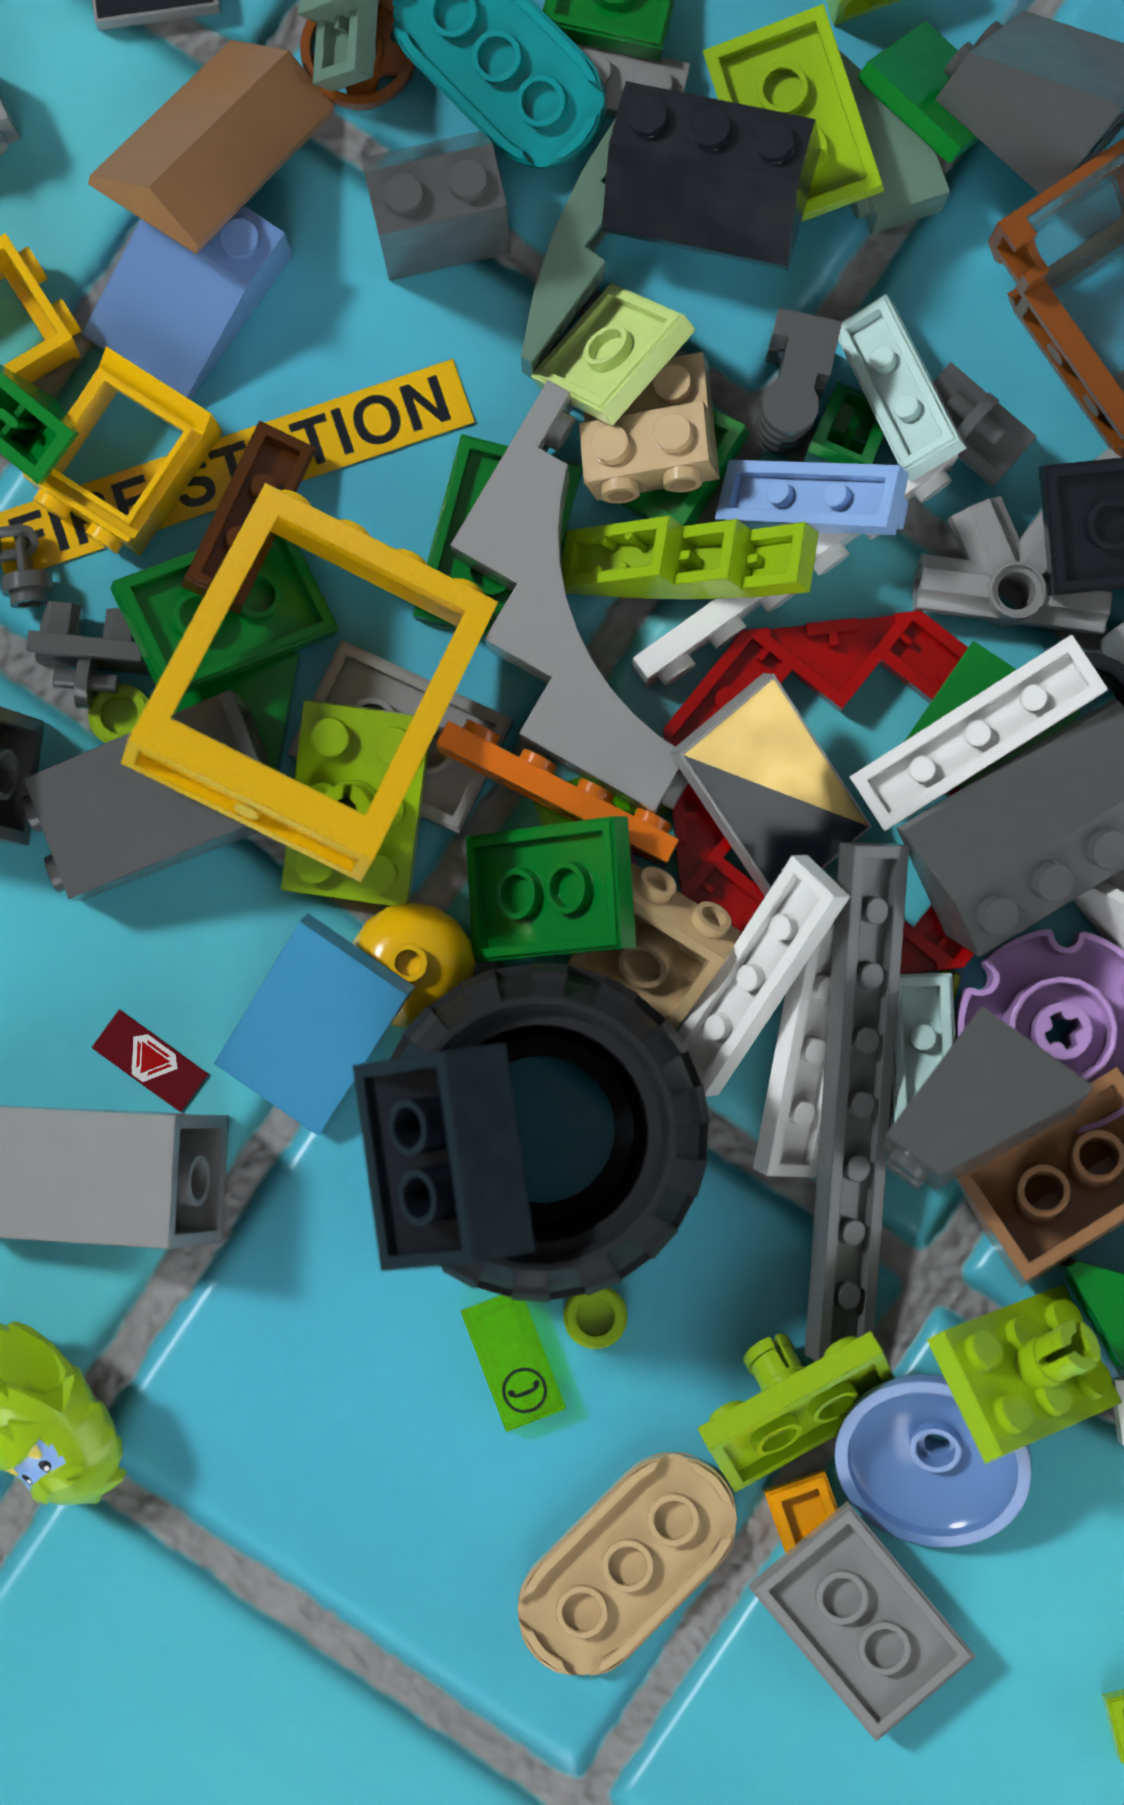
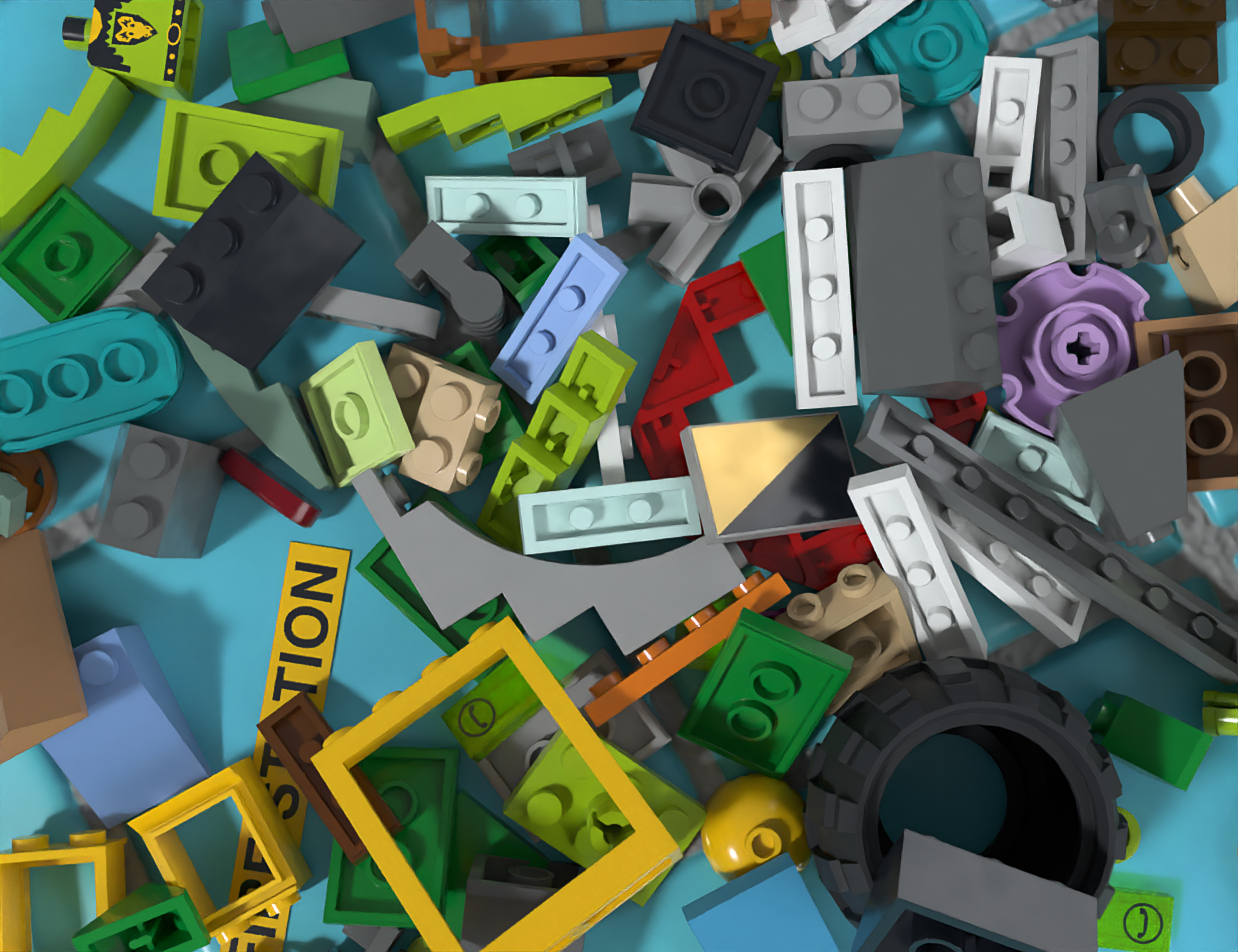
camera: 60 degrees left, 0 degrees up
(396, 643) = (493, 710): none -> clear neon green tile
(496, 309) = (270, 487): none -> dark red tile
(646, 645) = (608, 515): none -> light aqua plate
(707, 1285) = (1148, 739): none -> green slope
(723, 319) = (376, 313): none -> light grey beam
(1004, 351) = (519, 107): none -> lime slope

